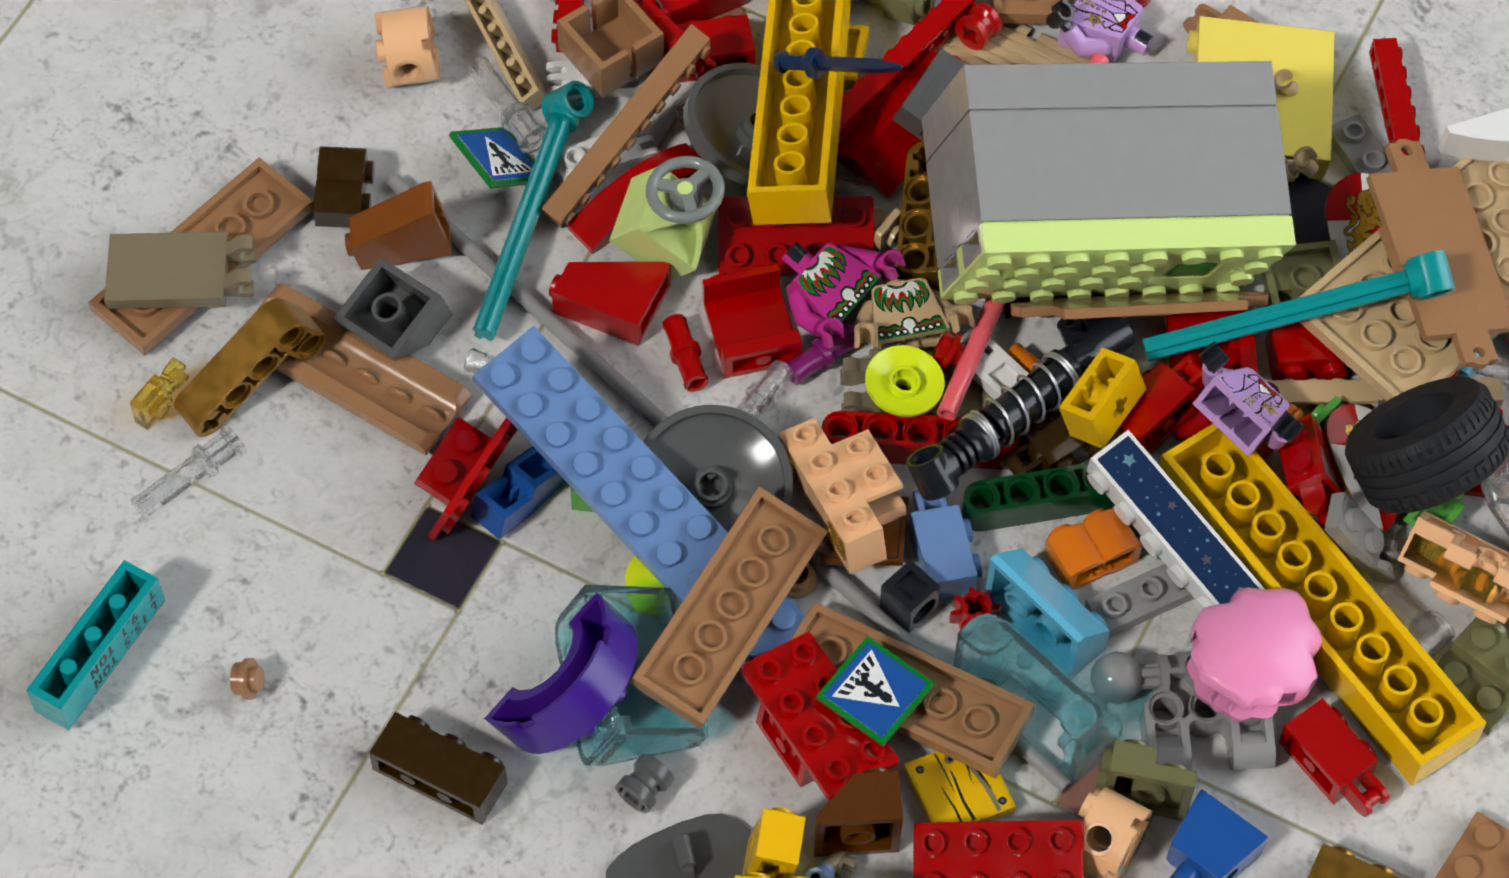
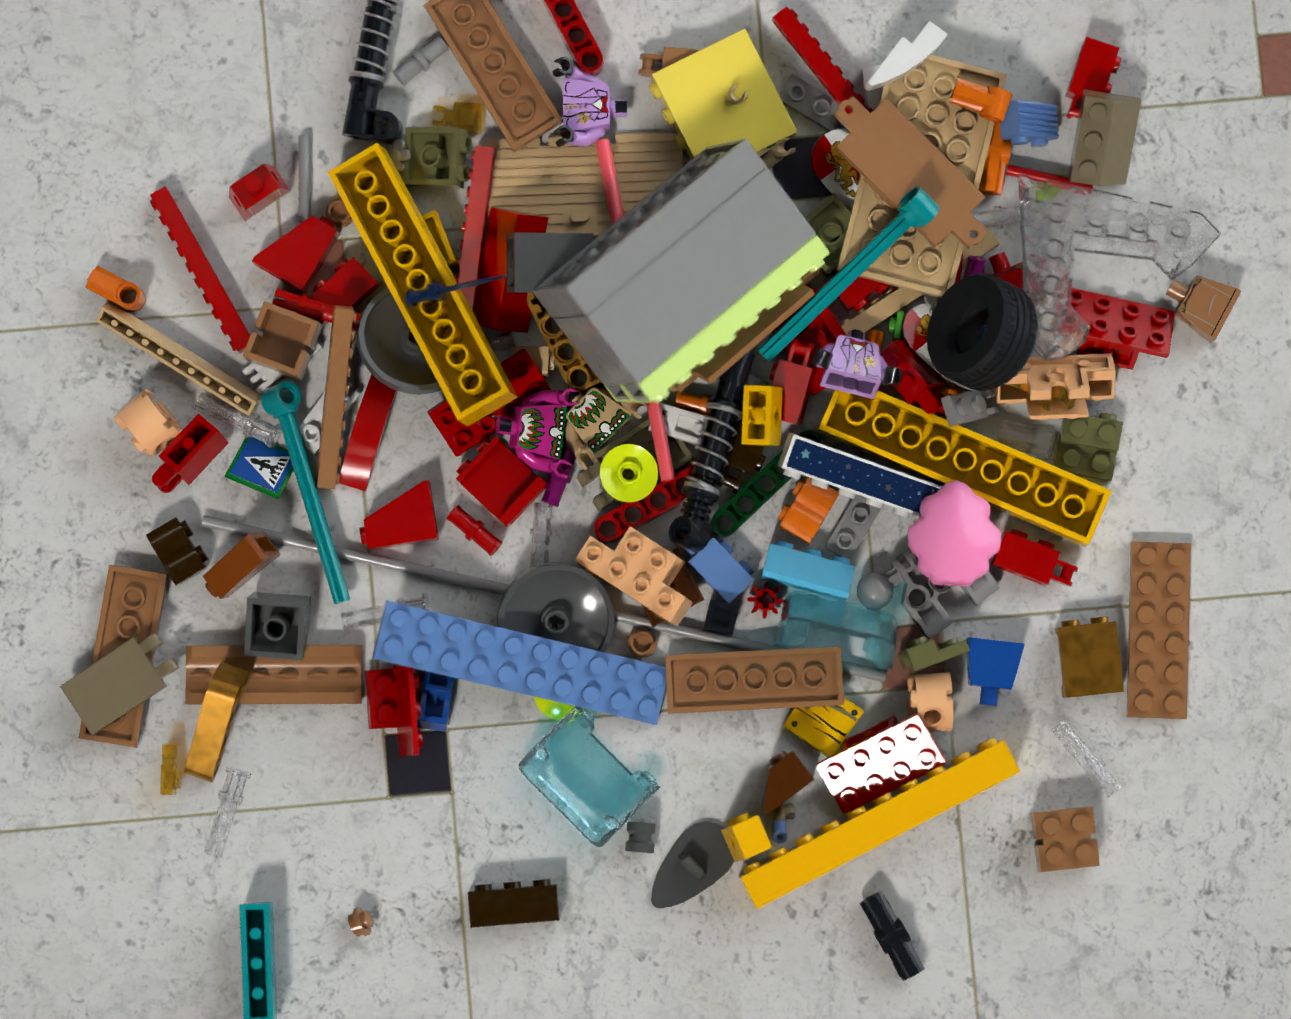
camera: 30 degrees left, 25 degrees up
(427, 99) = (188, 454): none -> red brick
(580, 690) = (575, 809): dark purple brick -> none
(668, 215) = (408, 452): yellowish green piece -> none
(728, 608) = (623, 701): medium nougat plate -> none
(800, 728) = (717, 734): red bracket -> none
(875, 691) = (743, 701): piece -> none
(948, 349) = (641, 431): red plate -> none
(978, 26) = (508, 166): red wheel -> none

